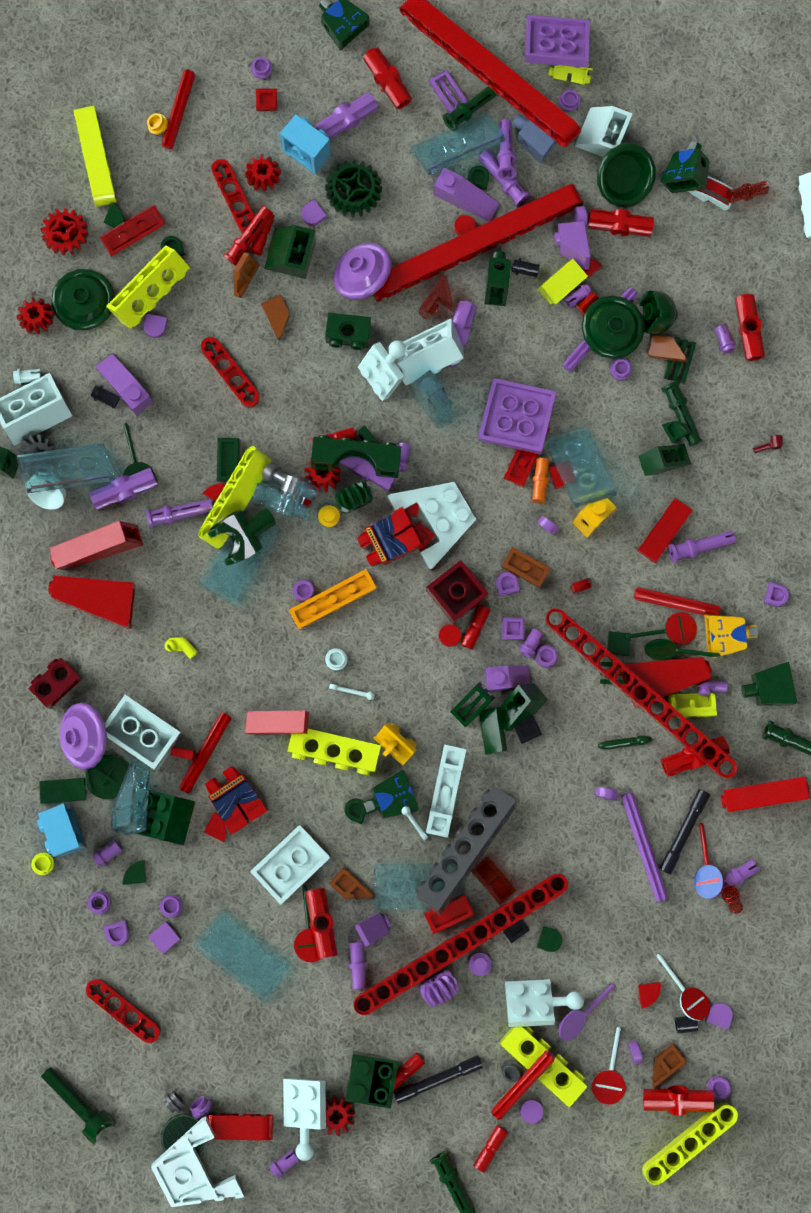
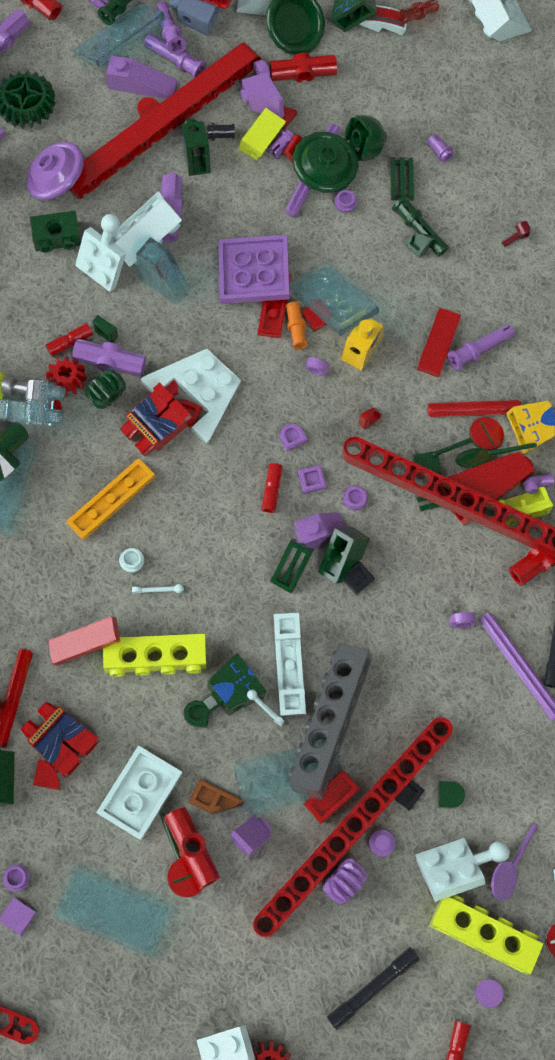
camera: 15 degrees left, 10 degrees down
(303, 590) = (76, 498): medium lavender tile -> none
(329, 516) = (84, 417): yellow plate -> none
(357, 965) = (246, 883): medium lavender pin -> none
(371, 1080) = (298, 1009): dark green slope -> none
(382, 457) = (69, 346): dark green arch -> none
(395, 744) = (220, 629): yellow hips -> none
(405, 451) = (145, 340): medium lavender pin -> none
(408, 1069) = (331, 993): red piece -> none
(439, 294) = (140, 176): clear red slope -> none
(449, 635) = (246, 503): red tile -> none
(457, 592) = (242, 455): dark red brick -> none
(479, 177) = (150, 59): dark green tile -> none
(493, 731) = (321, 588): dark green tile -> none
(493, 880) = (369, 747): clear red slope -> none
(512, 1070) = (454, 952): dark grey plate -> none
(523, 1084) = (471, 963): red axle -> none
(525, 567) = (306, 414): dark orange plate -> none
(531, 643) = (335, 490): medium lavender pin -> none
(625, 742) = (465, 563): dark green piece -> none
(664, 459) = (415, 272): dark green arch -> none
(666, 349) = (385, 170): dark orange tile -> none
(751, 340) = (466, 138): red piece -> none

